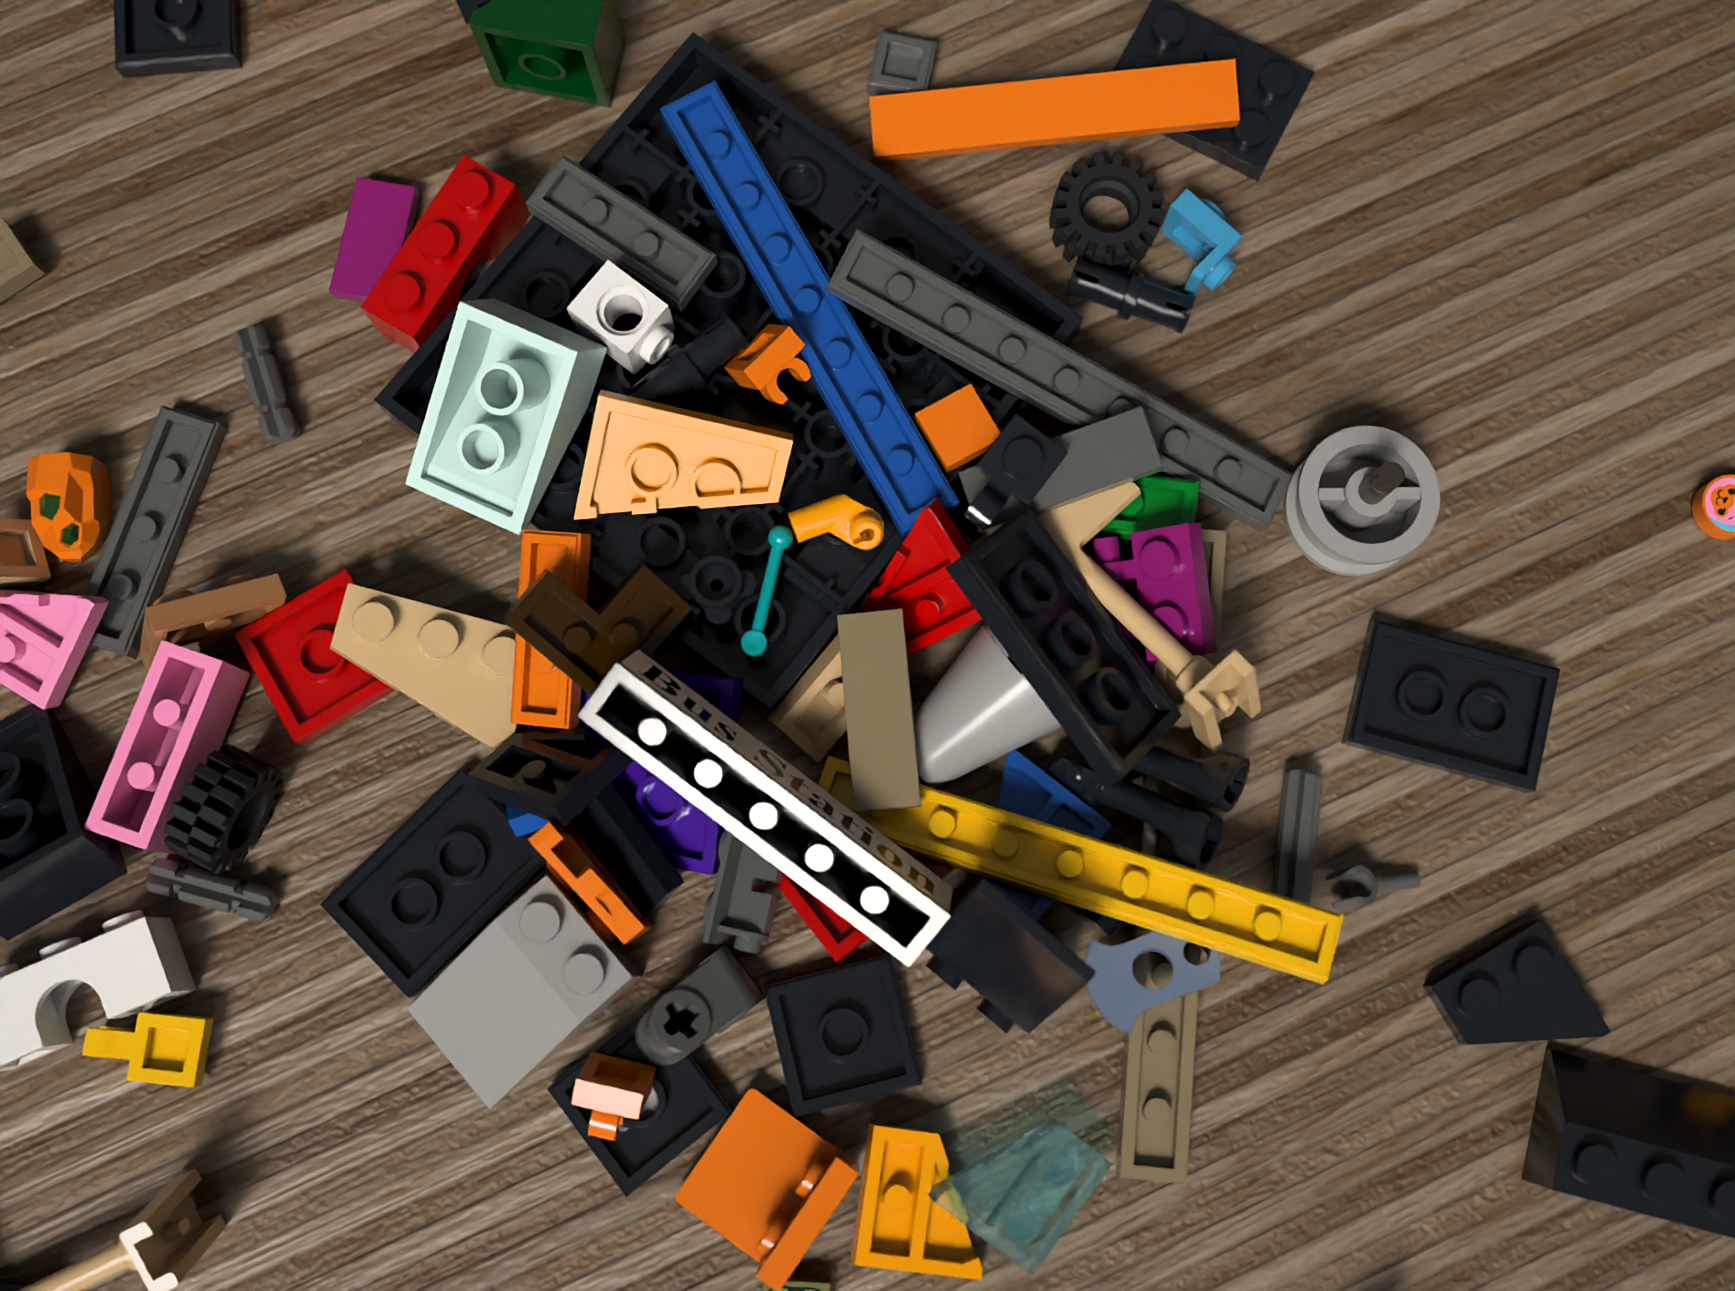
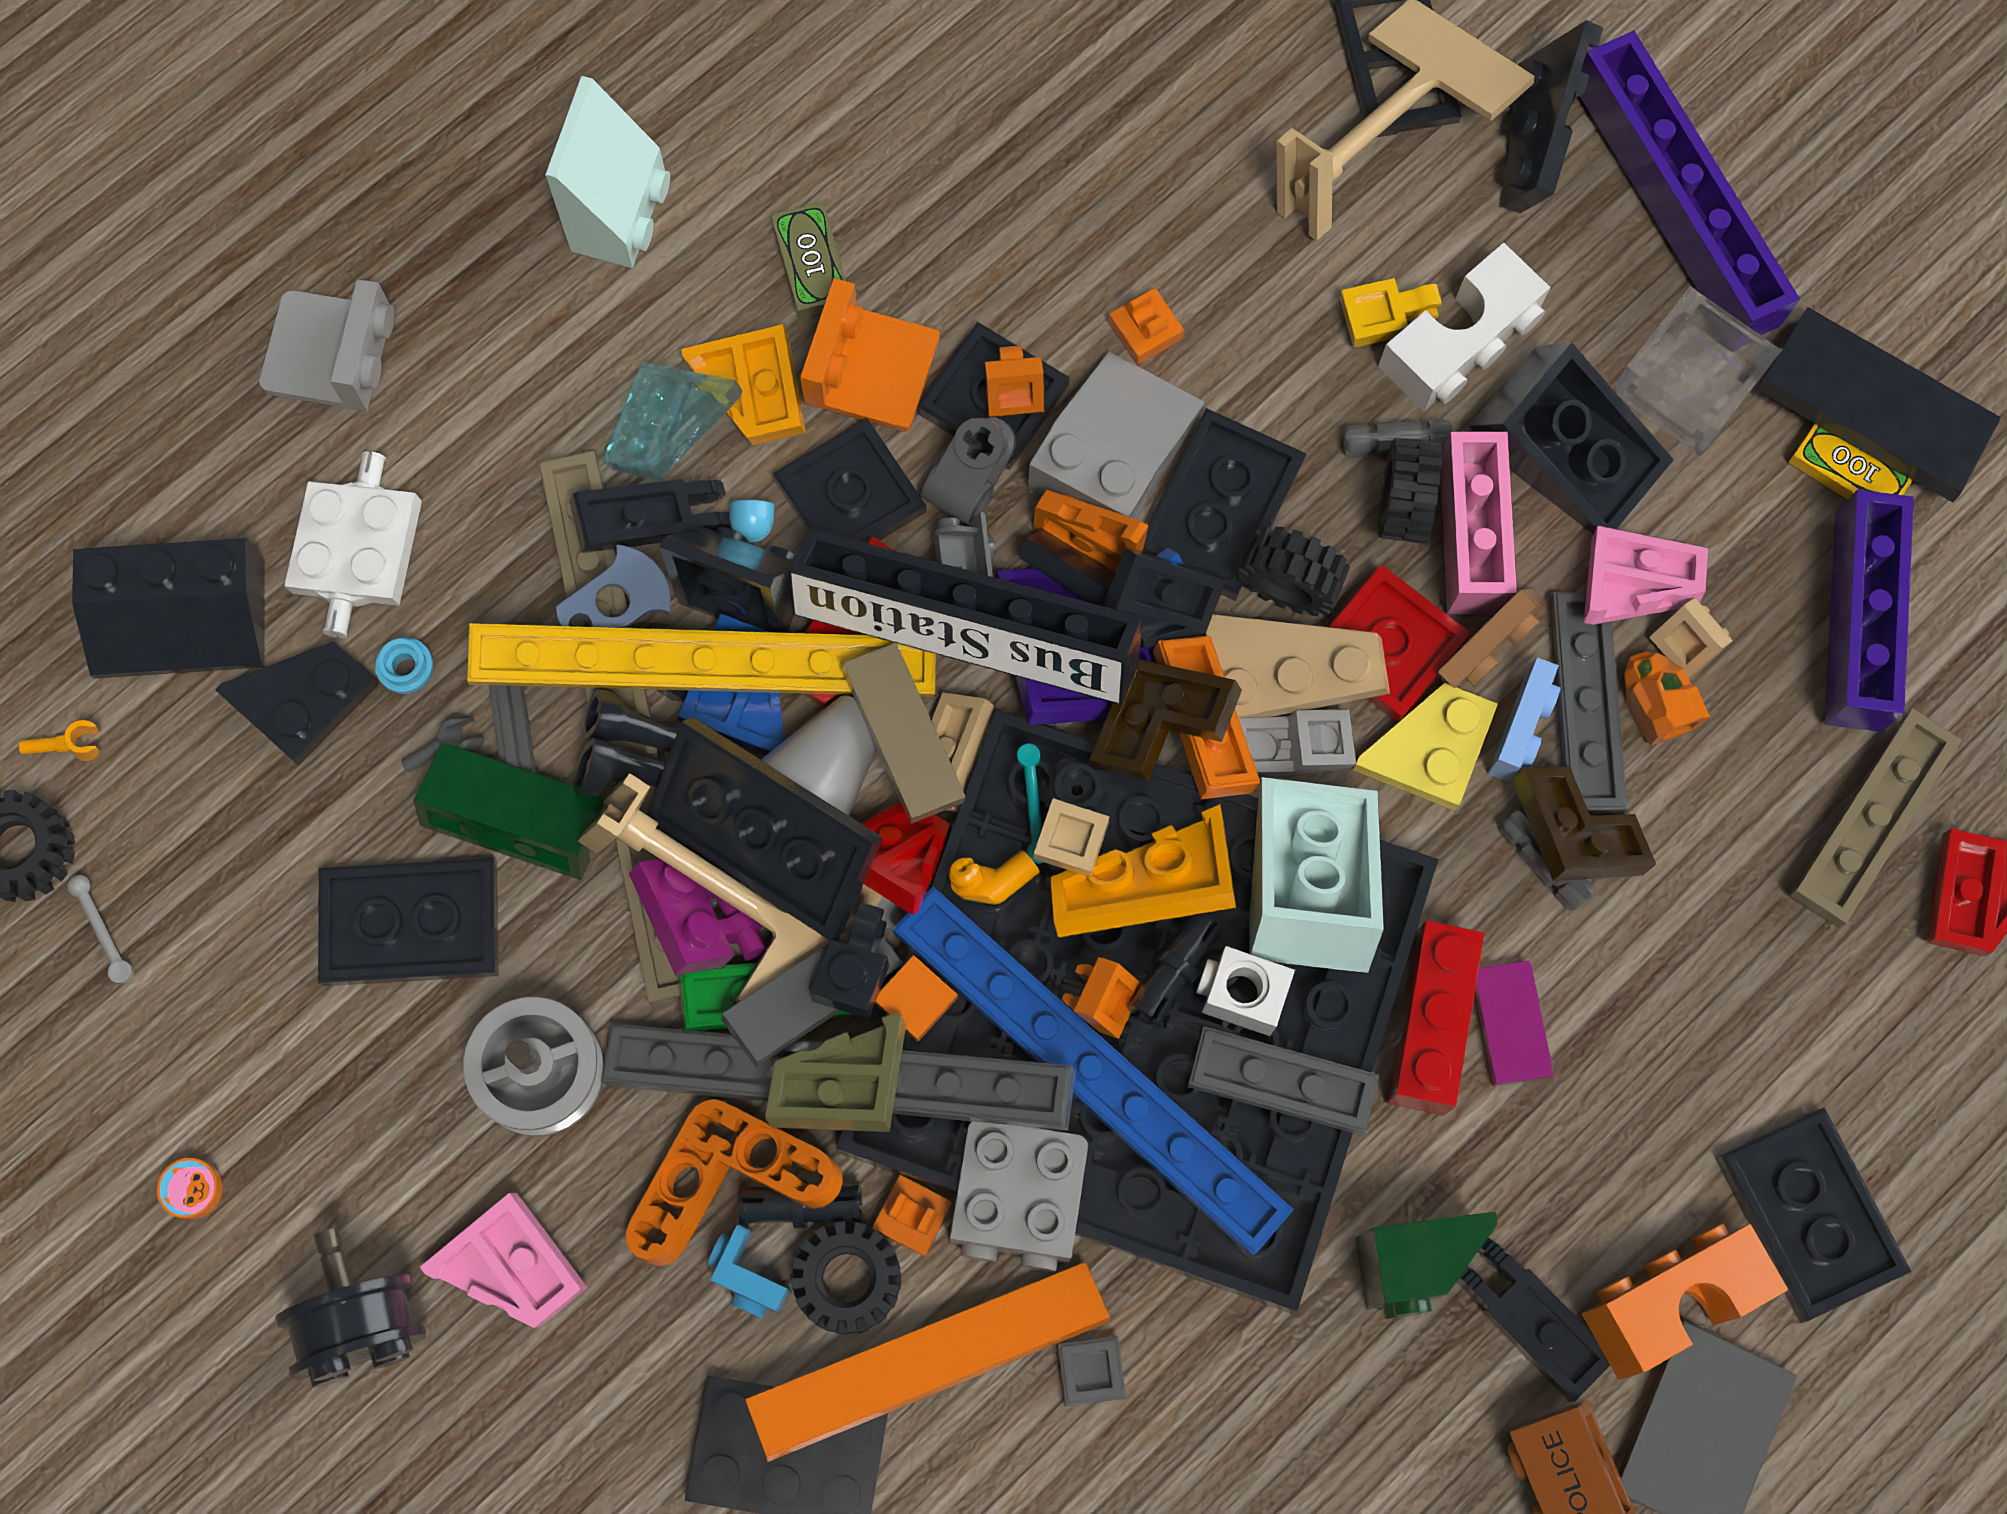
camera: 160 degrees right, 5 degrees down
(228, 520) = (1535, 699): none -> light blue plate
(229, 381) = (1571, 839): none -> dark brown plate
(324, 532) = (1432, 747): none -> light yellow wing
(390, 759) = (1293, 571): none -> black tyre
(435, 1127) = (1146, 326): none -> orange tile
(460, 581) = (1300, 743): none -> light grey slope
(742, 524) = (1071, 837): none -> tan tile
(921, 210) = (1019, 1194): none -> light grey bracket
(963, 1035) = (751, 518): none -> medium azure hinge
(1029, 248) = (912, 1216): none -> orange tile
(1063, 355) = (840, 1083): none -> olive wing
(1086, 1073) = (643, 512): none -> black hinge
(1201, 361) = (713, 1159): none -> orange beam
(1324, 787) = (507, 810): none -> dark green panel
(1412, 986) = (394, 653): none -> medium azure plate
(1419, 1161) = (353, 544): none -> white plate
(1427, 329) = (509, 1264): none -> bright pink wing
(1605, 305) = (349, 1320): none -> black wheel

